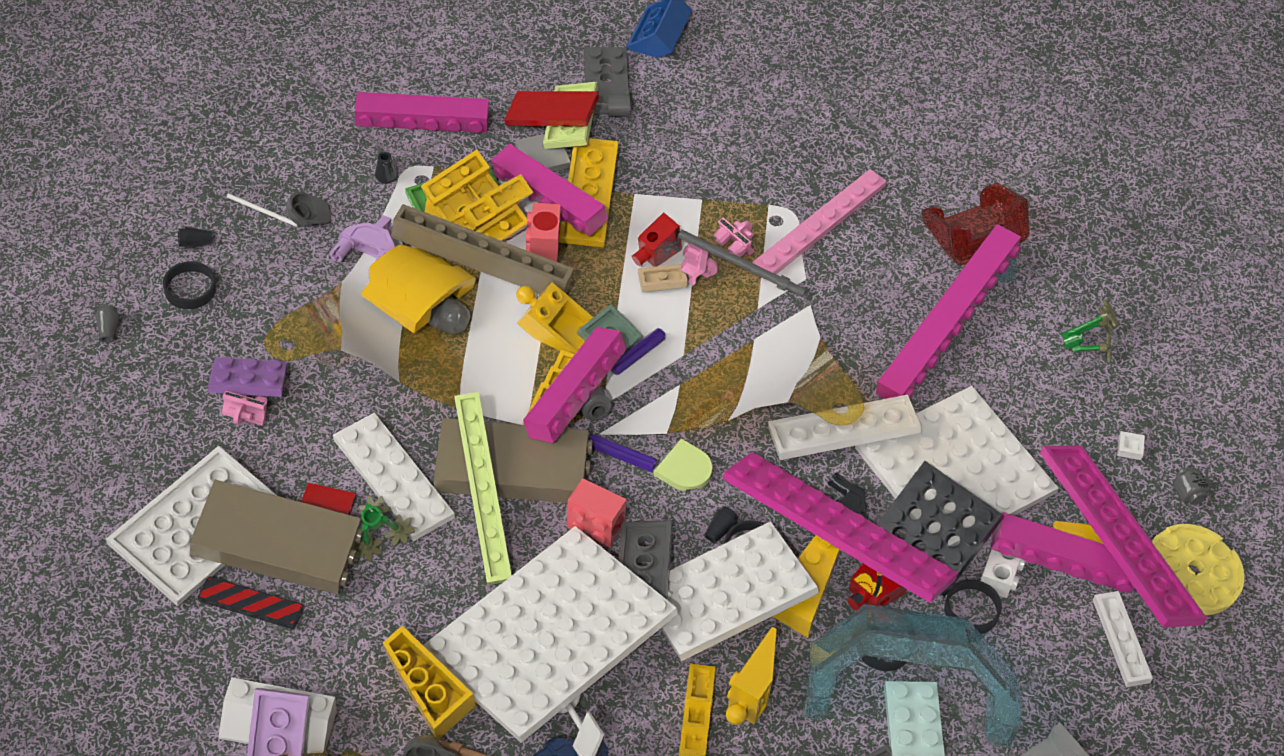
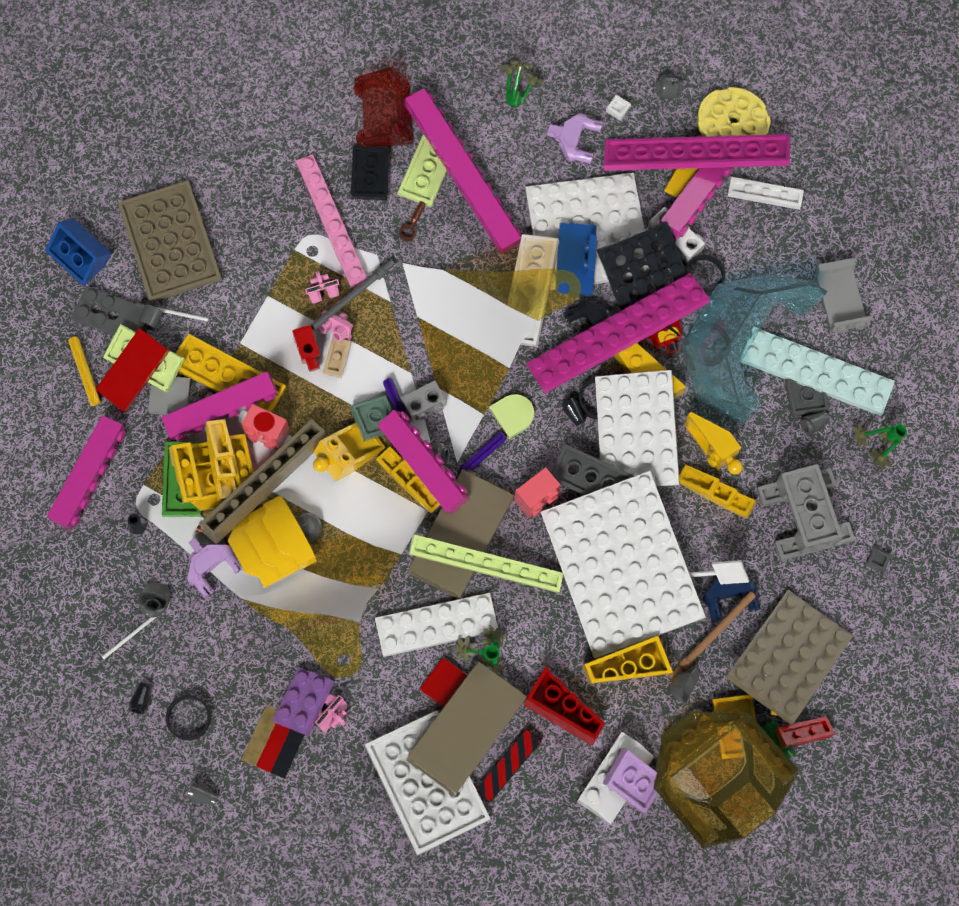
camera: 65 degrees left, 20 degrees up
(186, 372) = (272, 745): none -> sticker
(345, 622) = (560, 706): none -> red wedge
(532, 77) = (84, 371): none -> yellow axle
(638, 130) = (183, 314): none -> white axle
(653, 371) = (420, 396): none -> light grey brick
(713, 96) = (169, 241): none -> dark tan plate
(868, 297) = (415, 217): none -> copper piece
(896, 237) = (370, 173): none -> black plate
(899, 459) = (577, 254): none -> blue bracket
(921, 288) = (423, 175): none -> yellowish green tile
(1065, 408) = (569, 135): none -> lavender connector

